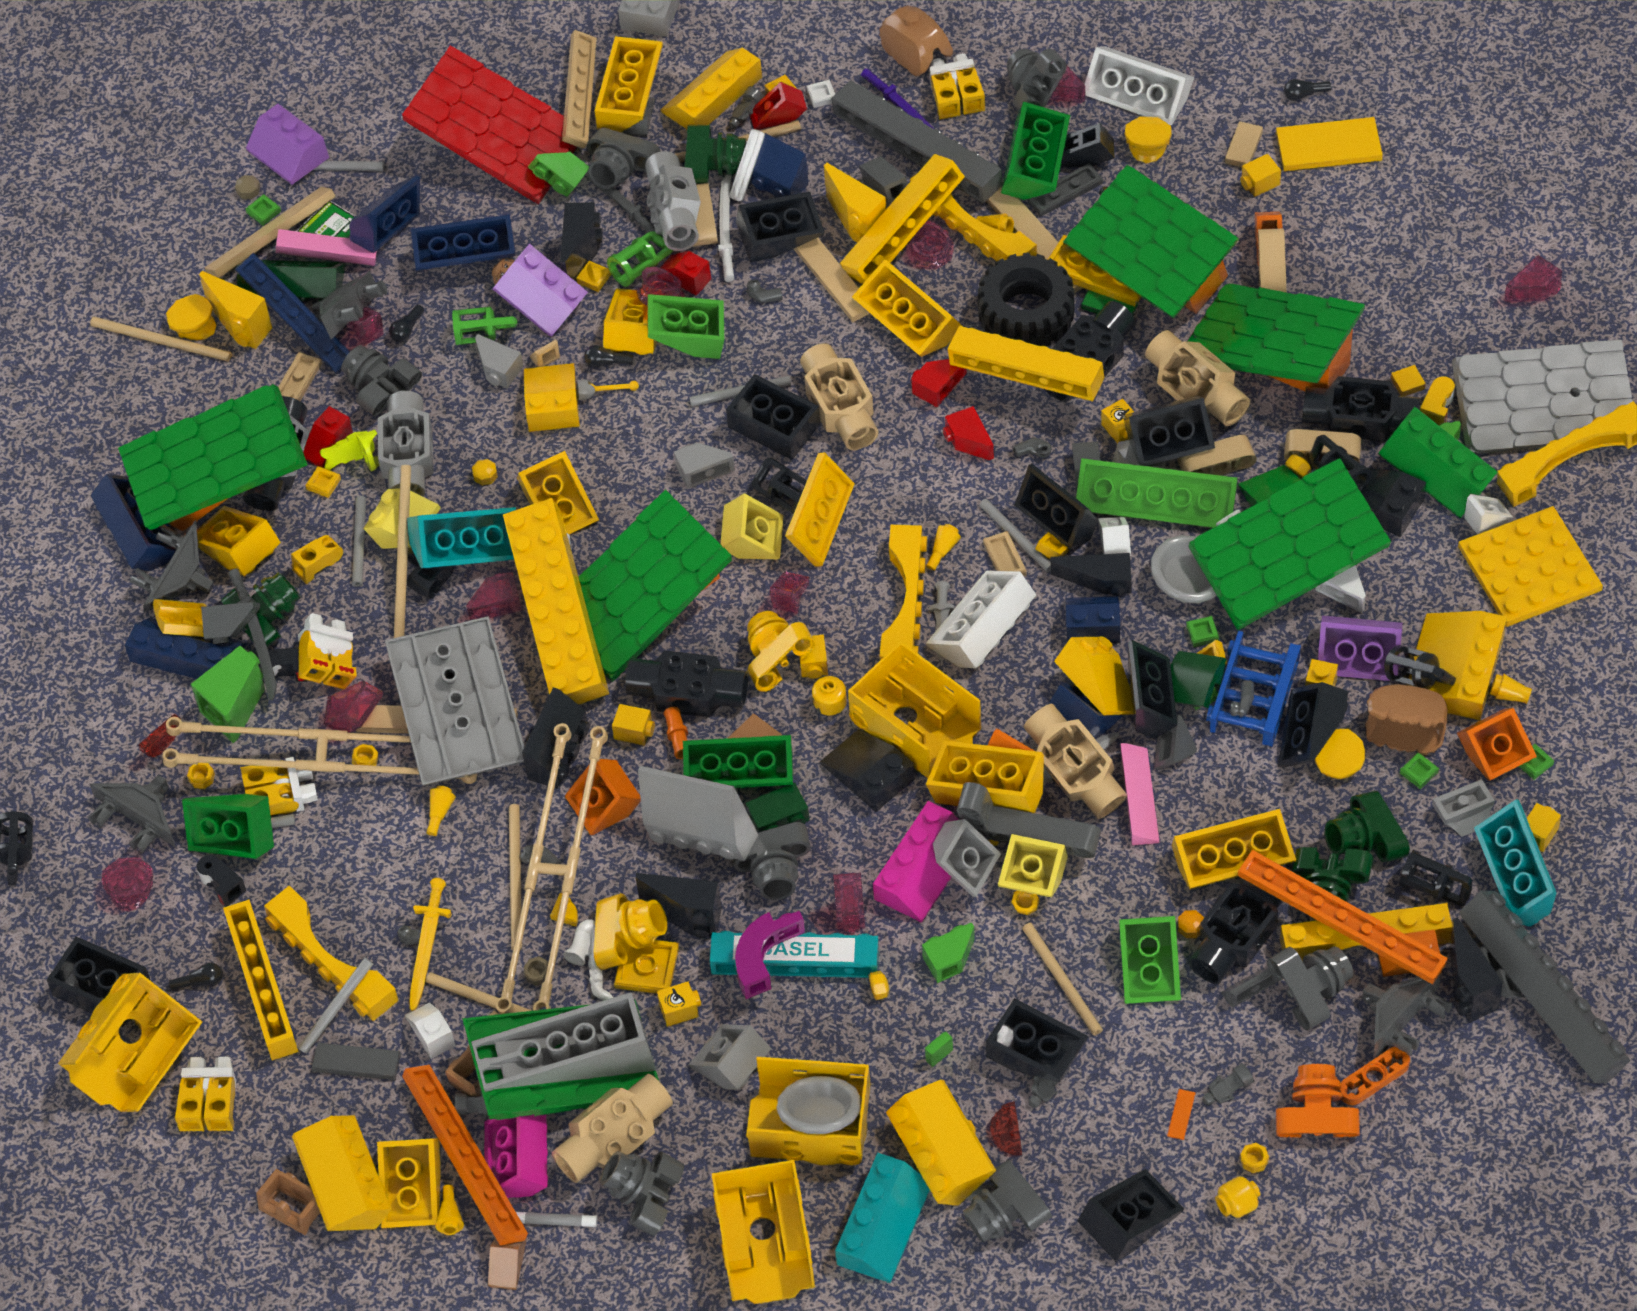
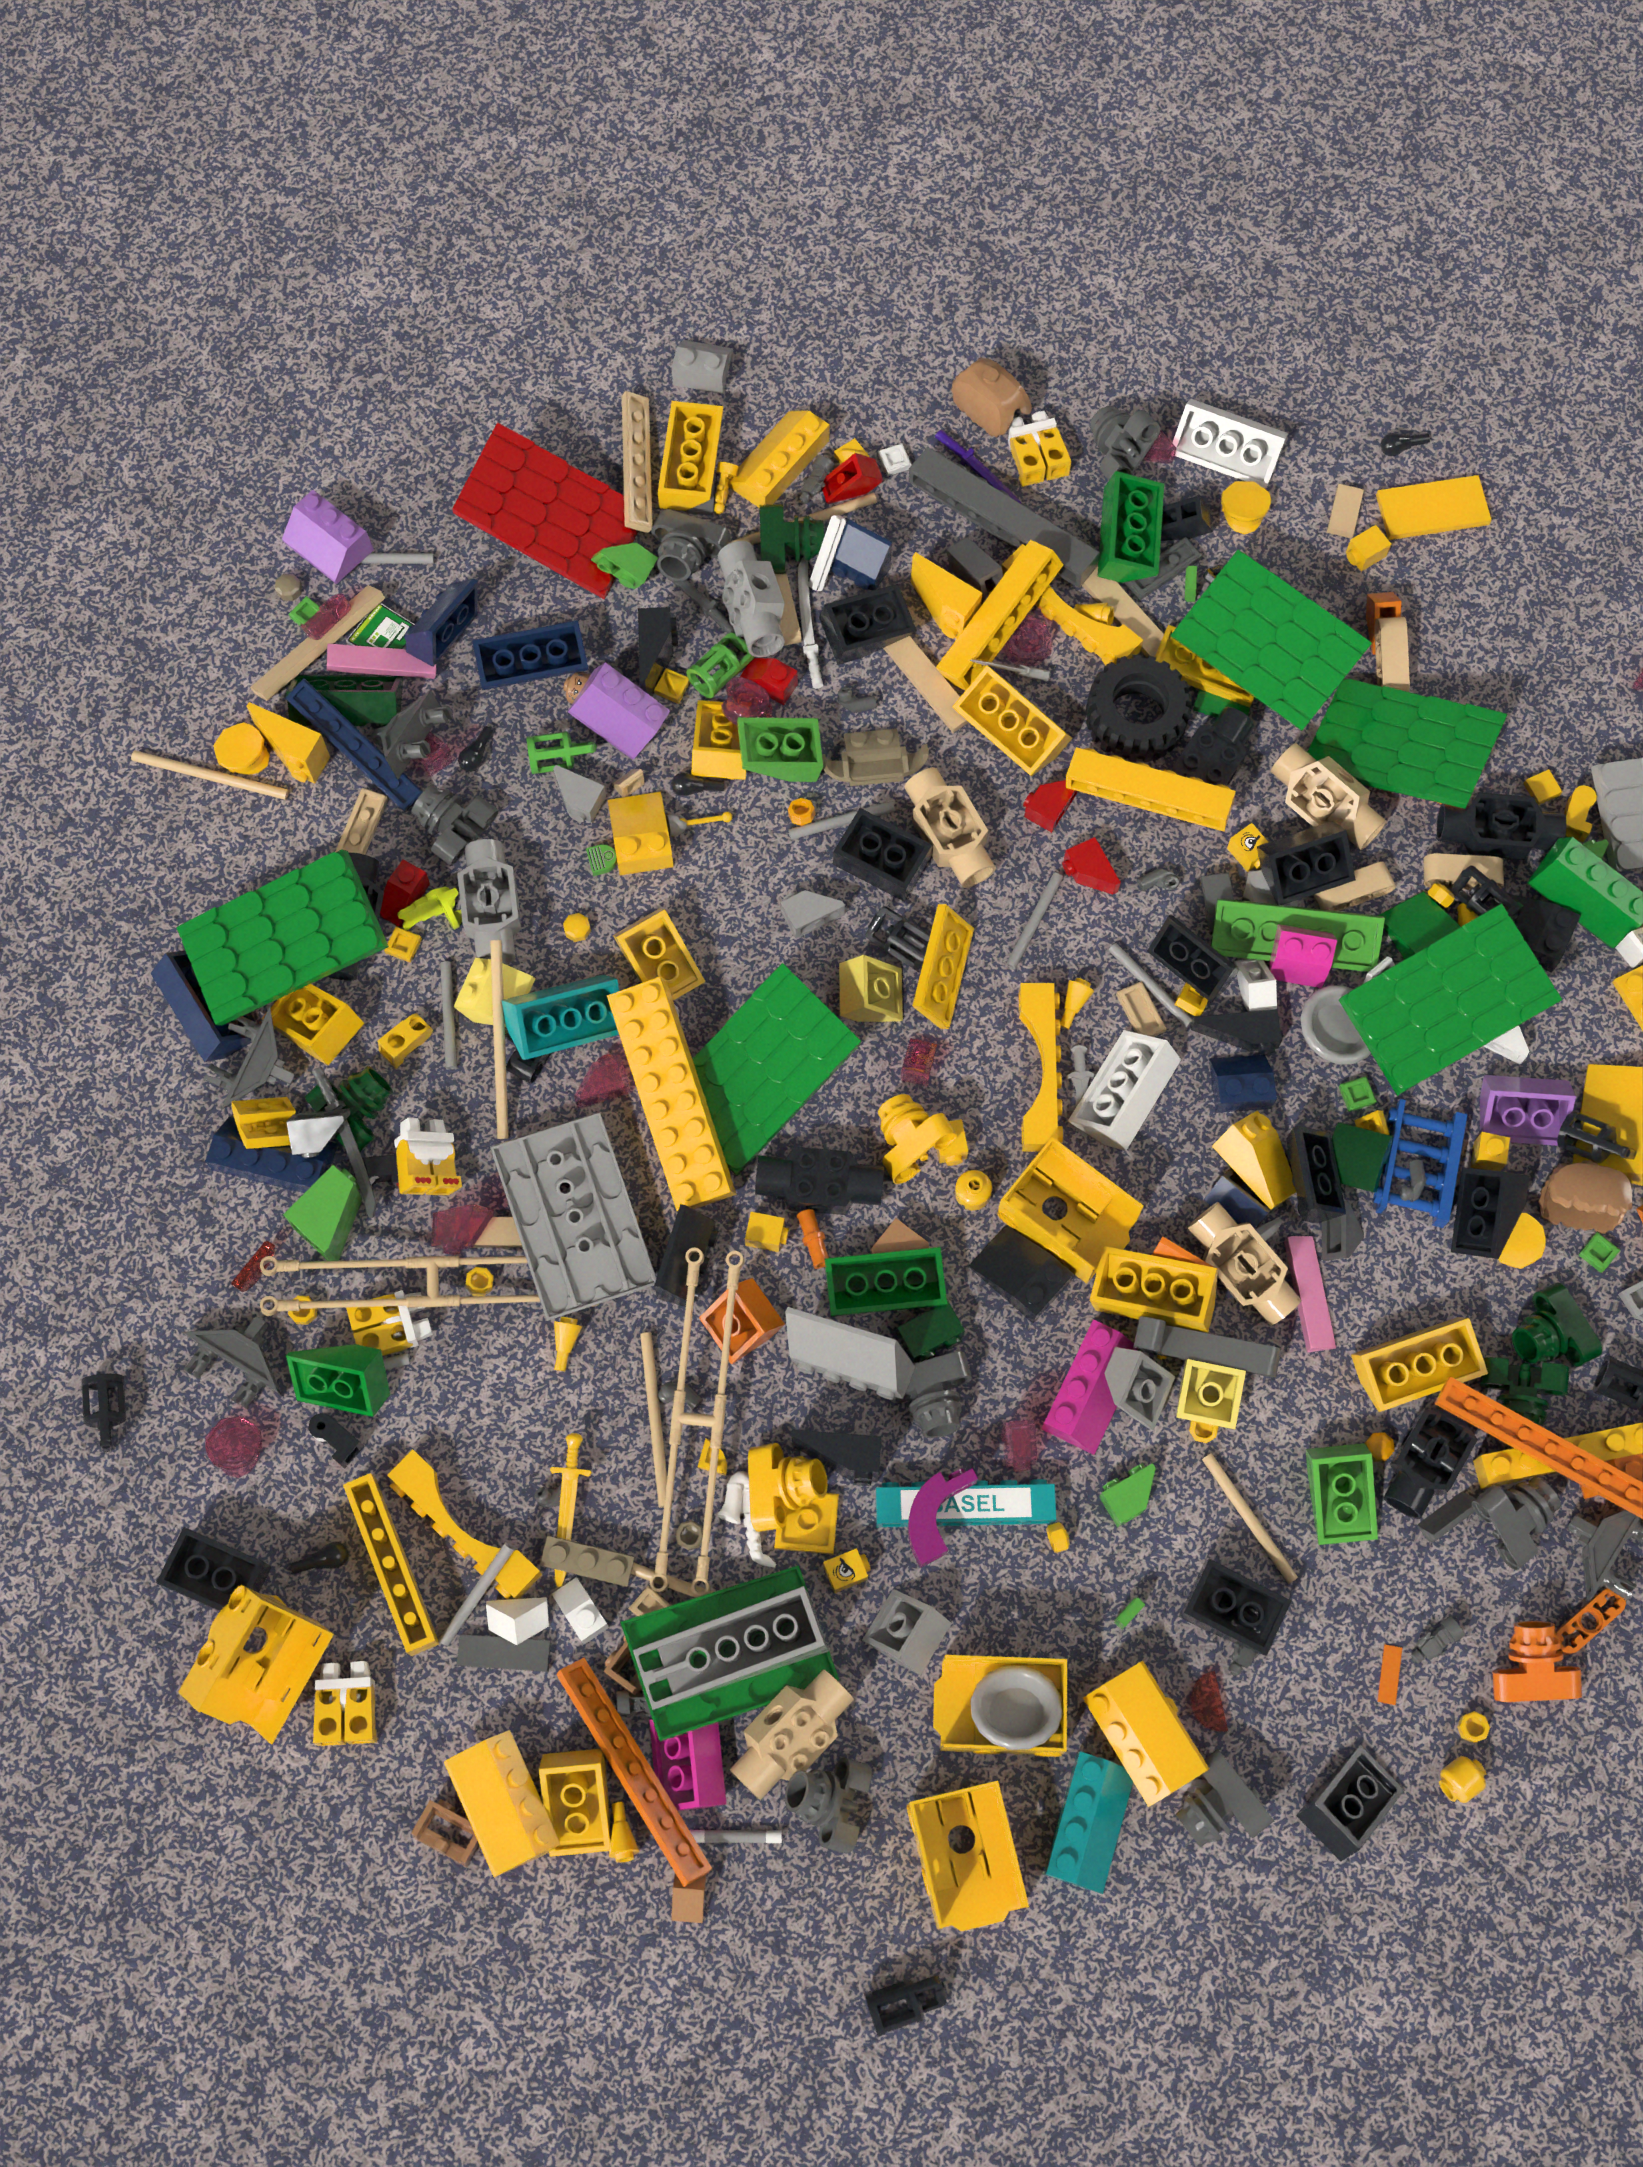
camera: 10 degrees left, 15 degrees up
(280, 210) = (328, 616): none -> clear pink piece
(372, 1029) = (517, 1618): none -> white slope
(440, 985) = (587, 1560): none -> dark tan plate
(513, 417) = (601, 859): none -> bright green tile
(661, 98) = (726, 471): none -> yellow piece
(702, 381) = (801, 811): none -> light orange tile
(774, 339) = (874, 759): none -> dark tan plate
(912, 479) = (1034, 921): none -> light grey piece
(922, 269) = (1022, 670): none -> light grey sword
(1088, 197) = (1190, 583): none -> bright green tile
(1156, 510) = (1302, 955): none -> dark pink slope

